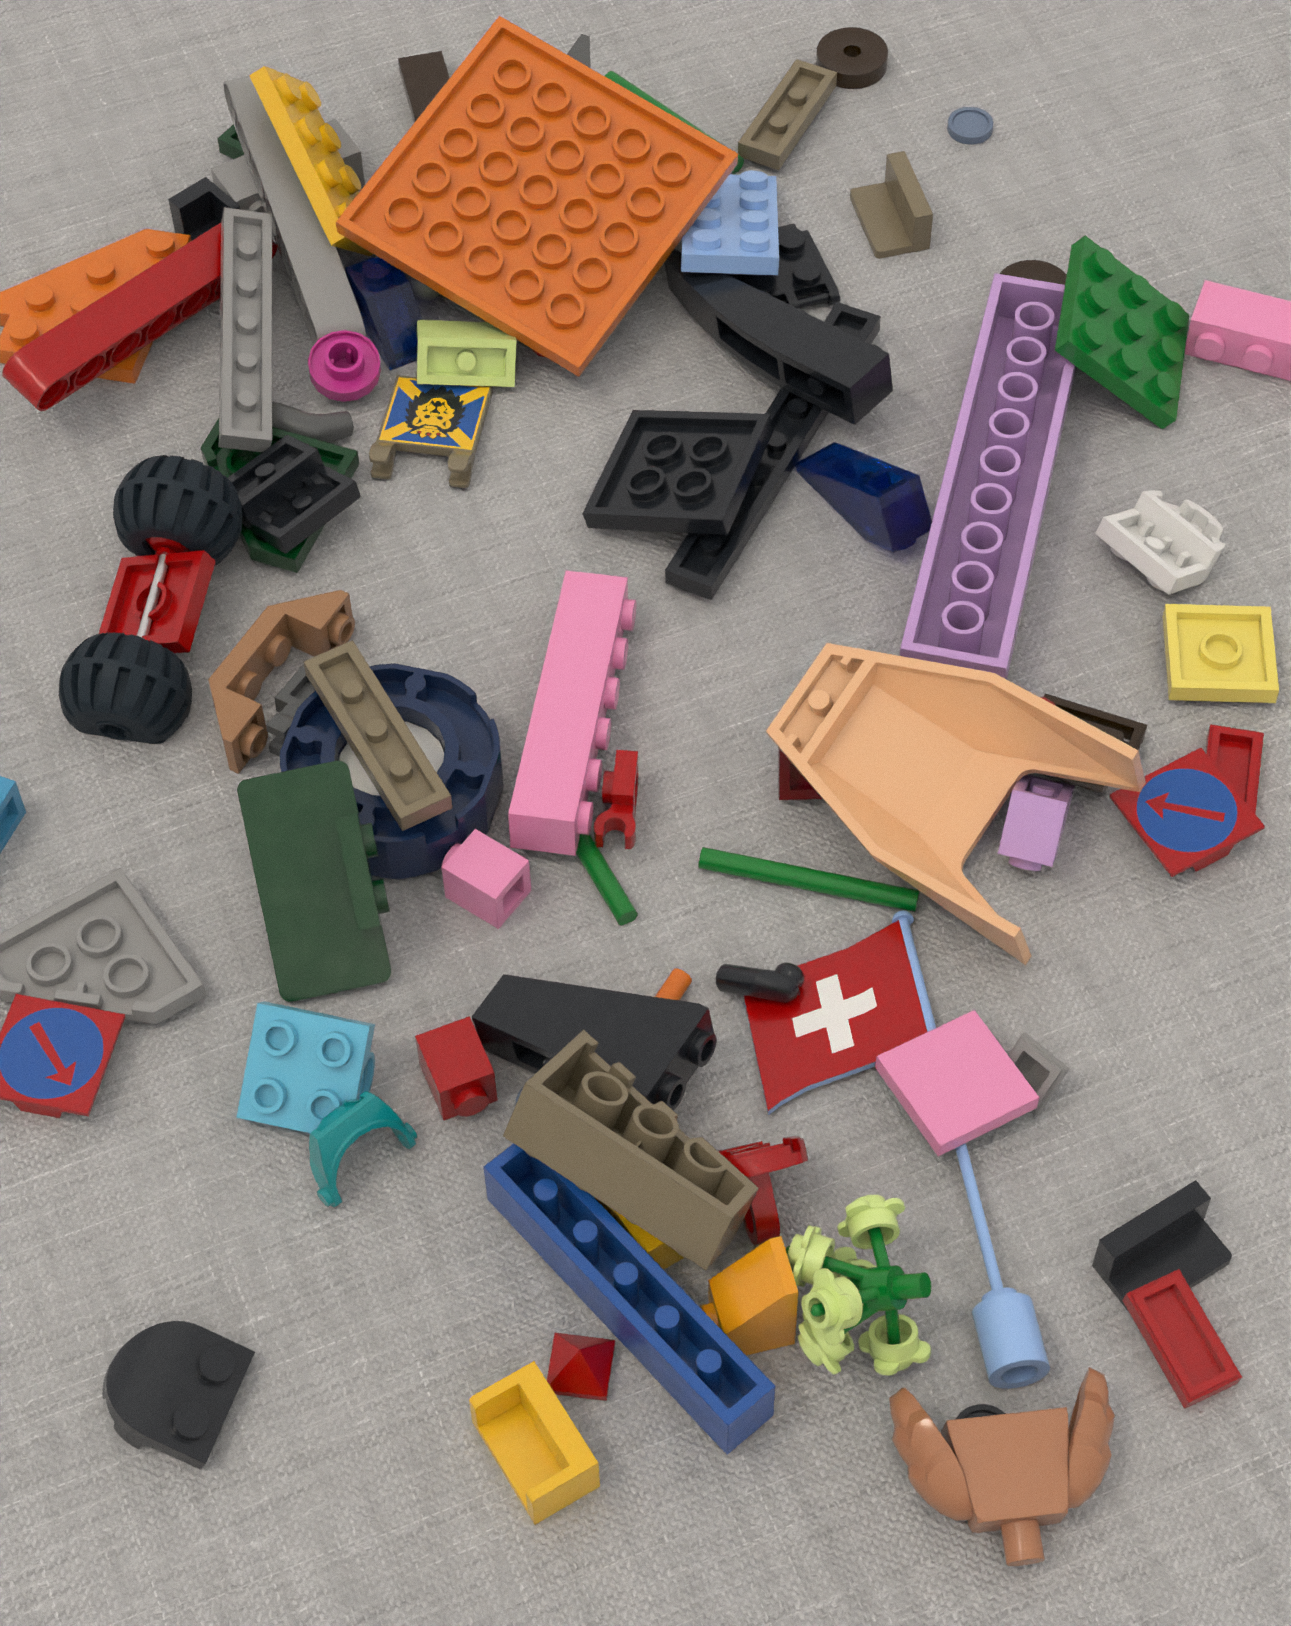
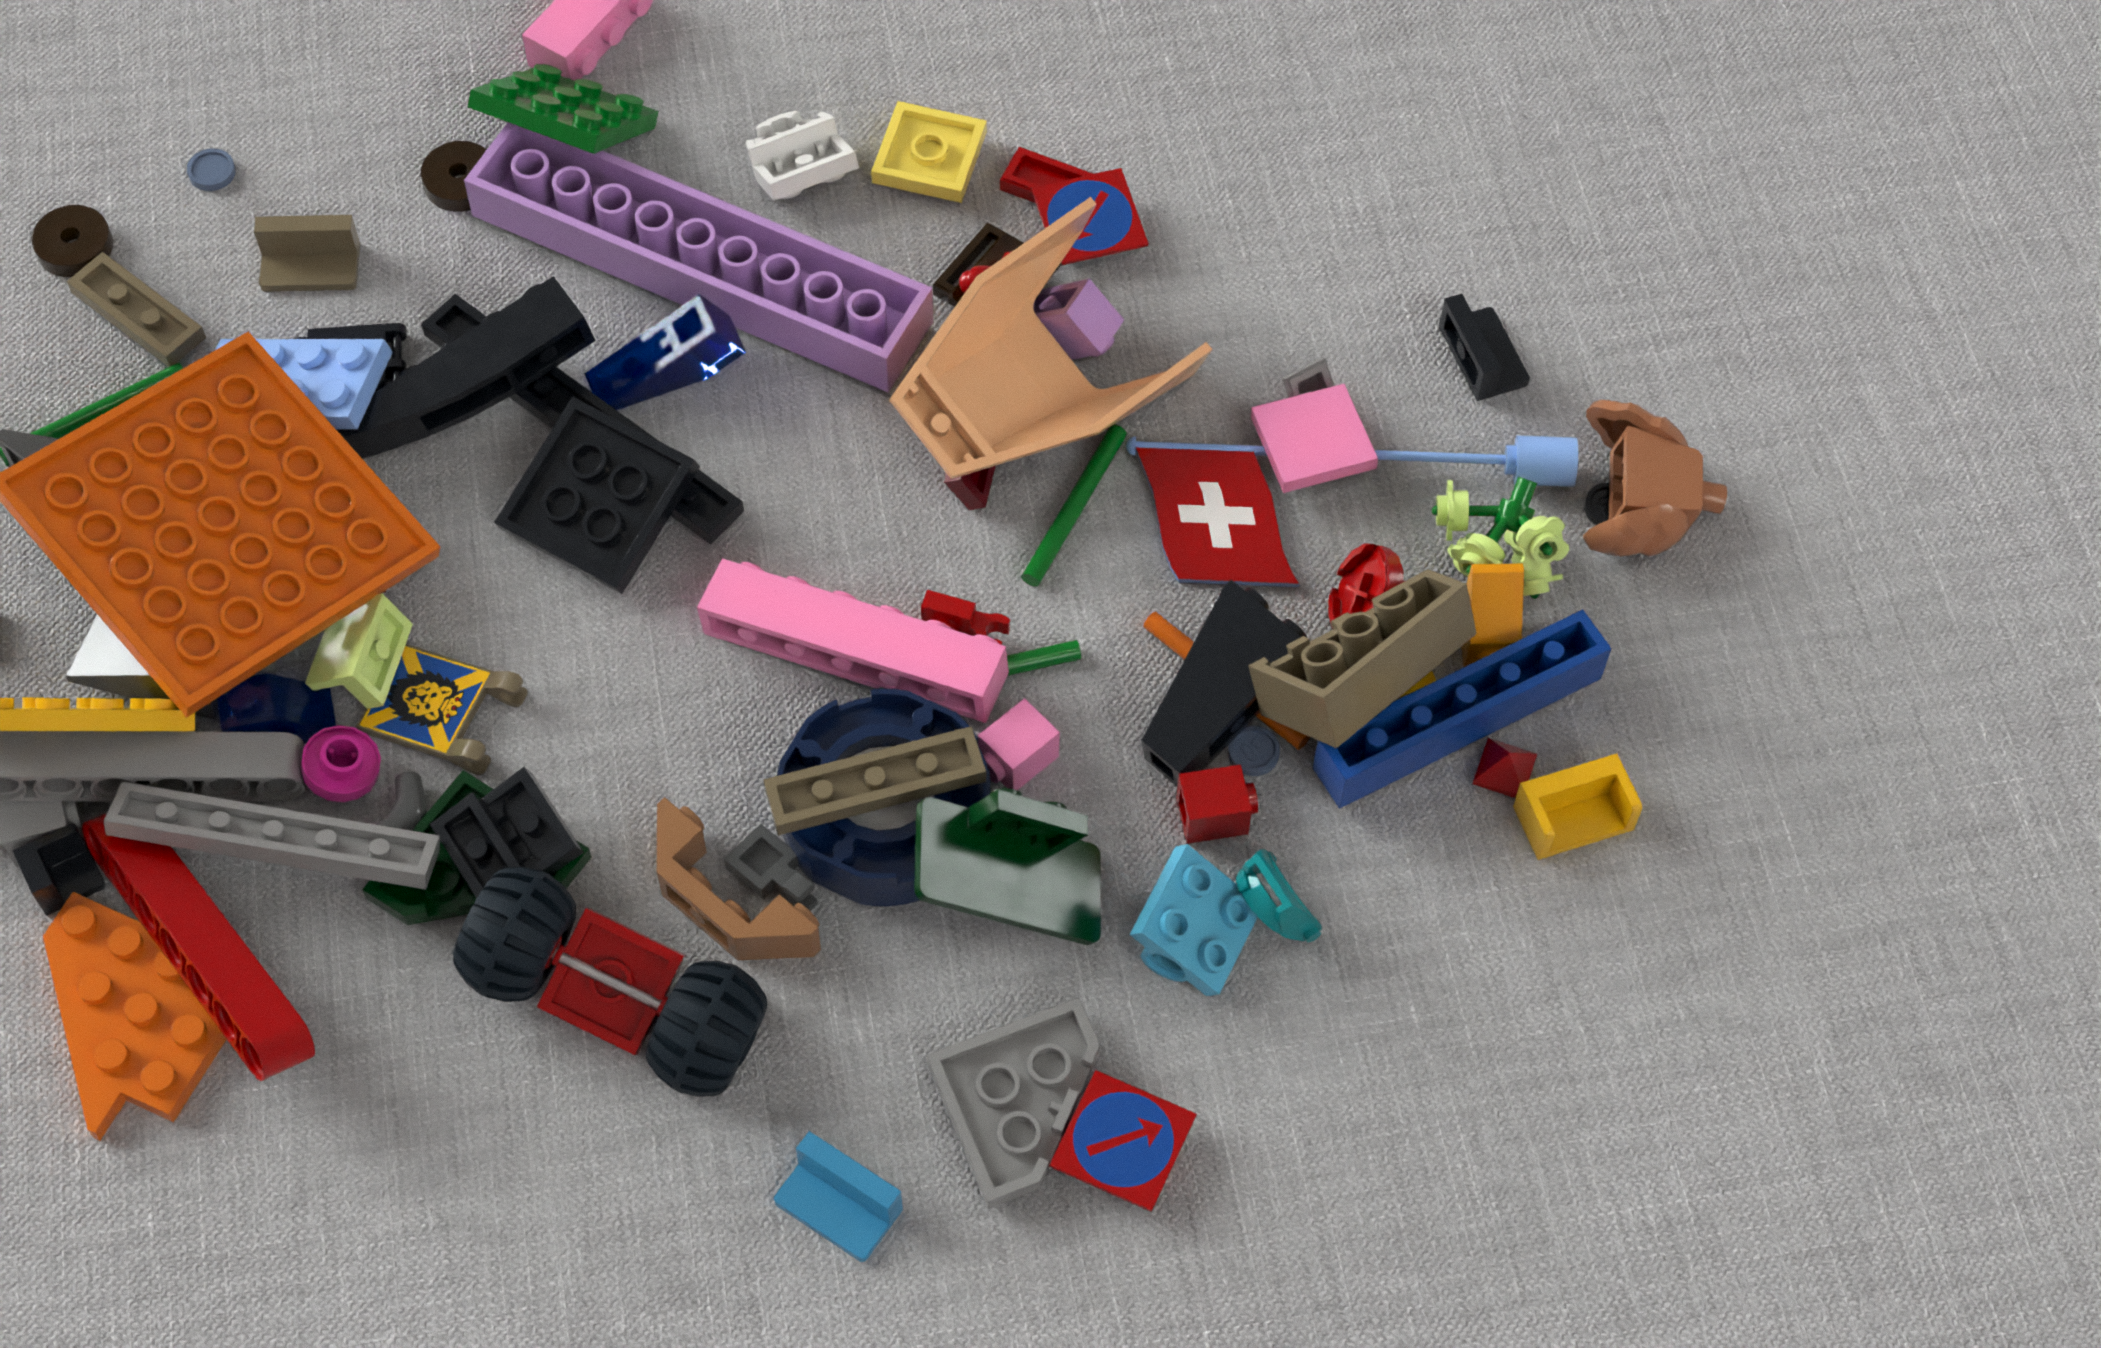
camera: 80 degrees left, 5 degrees up
(175, 1388) = (1480, 1078): black slope -> none
(765, 984) = (1181, 559): black arm -> none
(1181, 1338) = (1556, 356): red tile -> none

